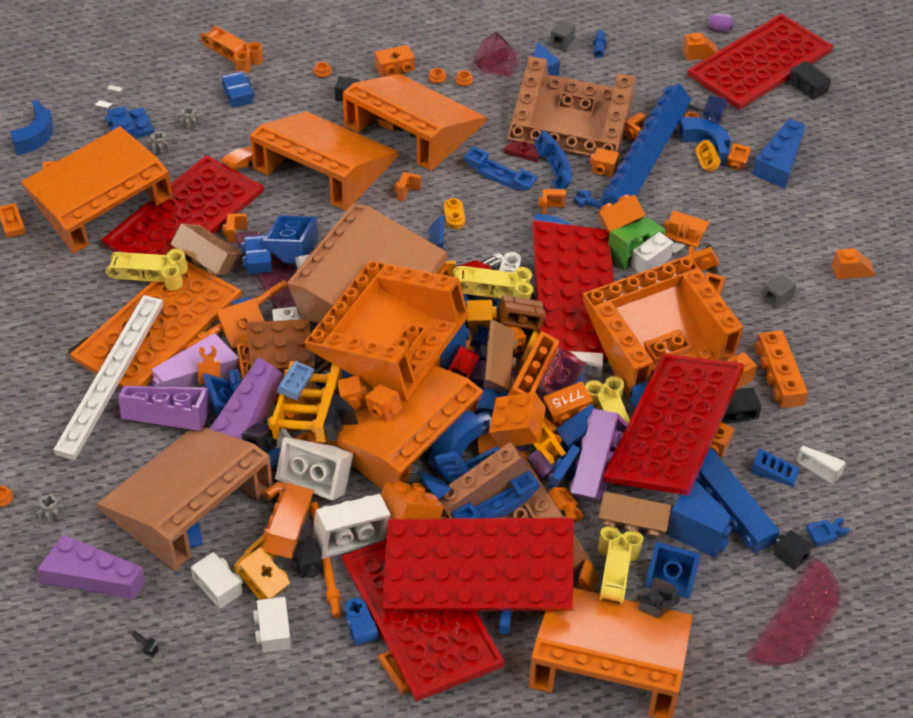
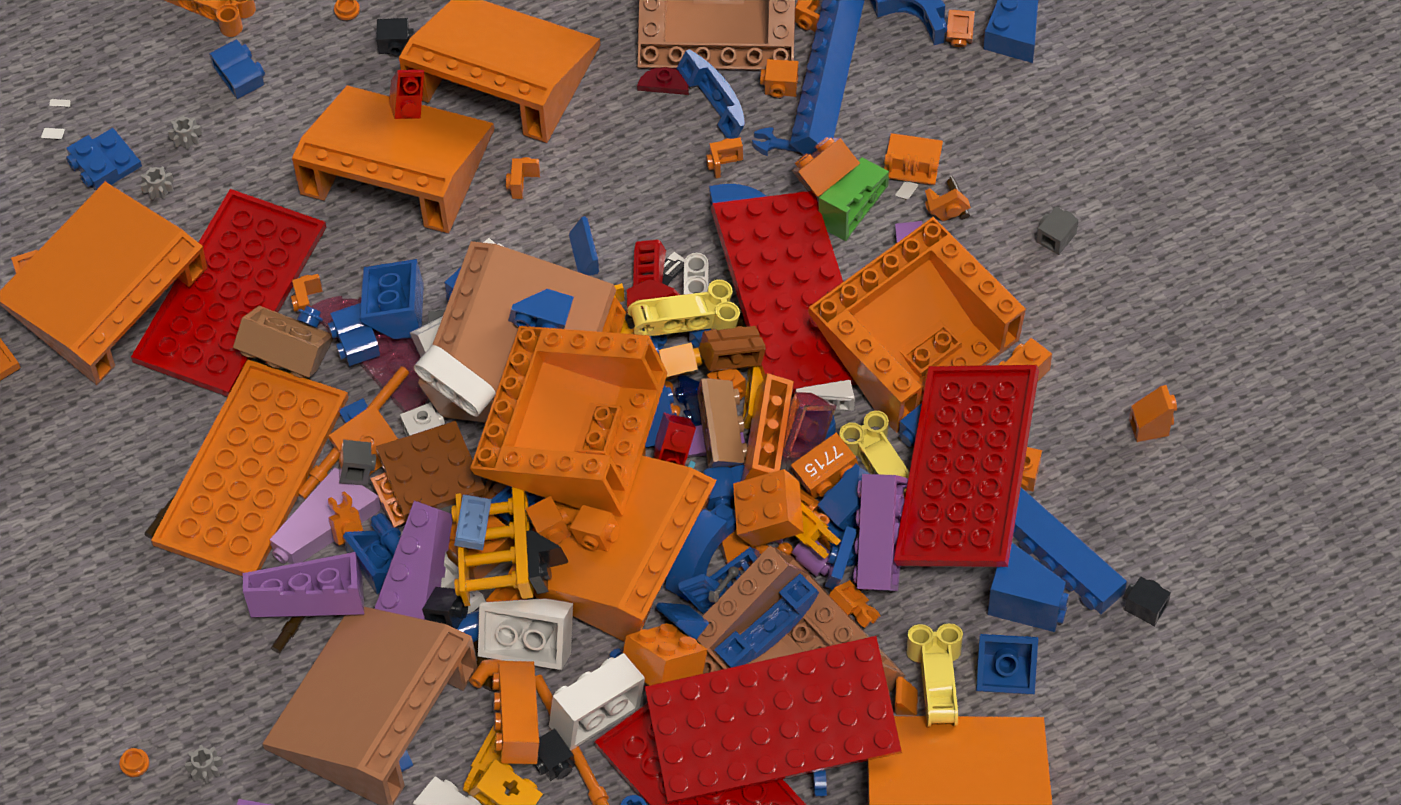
camera: 10 degrees left, 10 degrees up
(108, 378) = (217, 563): white plate -> none
(144, 434) = (288, 631): none -> dark brown piece
(149, 267) = (215, 388): light yellow piece -> none
(229, 331) = (356, 462): none -> dark grey brick
(231, 238) = (310, 316): none -> blue plate
(238, 158) = (277, 183): orange slope -> none
(311, 283) = (454, 380): none -> white beam
(343, 116) = (406, 94): none -> red slope
(389, 252) = (542, 309): none -> blue slope
(454, 213) = (597, 202): light orange plate -> none
(460, 470) = (732, 573): none -> dark grey hinge
(480, 250) = (648, 252): none -> red slope
(498, 173) = (639, 125): blue slope -> none
(634, 514) = (944, 602): medium nougat slope -> none
(652, 253) = (878, 211): white brick -> none
(661, 598) = (1000, 708): black slope -> none
(708, 156) = (919, 38): light orange plate -> none
(717, 281) = (969, 236): orange slope -> none
(743, 406) = (1048, 413): black brick -> none
(773, 474) = (1094, 500): blue slope -> none
(781, 369) = (1083, 347): orange brick -> none
(799, 619) = (1173, 689): clear pink plate -> none
(821, 464) = (1159, 473): white slope -> none
(824, 422) = (1153, 415): none -> orange slope
(825, 533) = (1181, 567): blue plate -> none
(851, 264) = (1144, 167): orange slope -> none

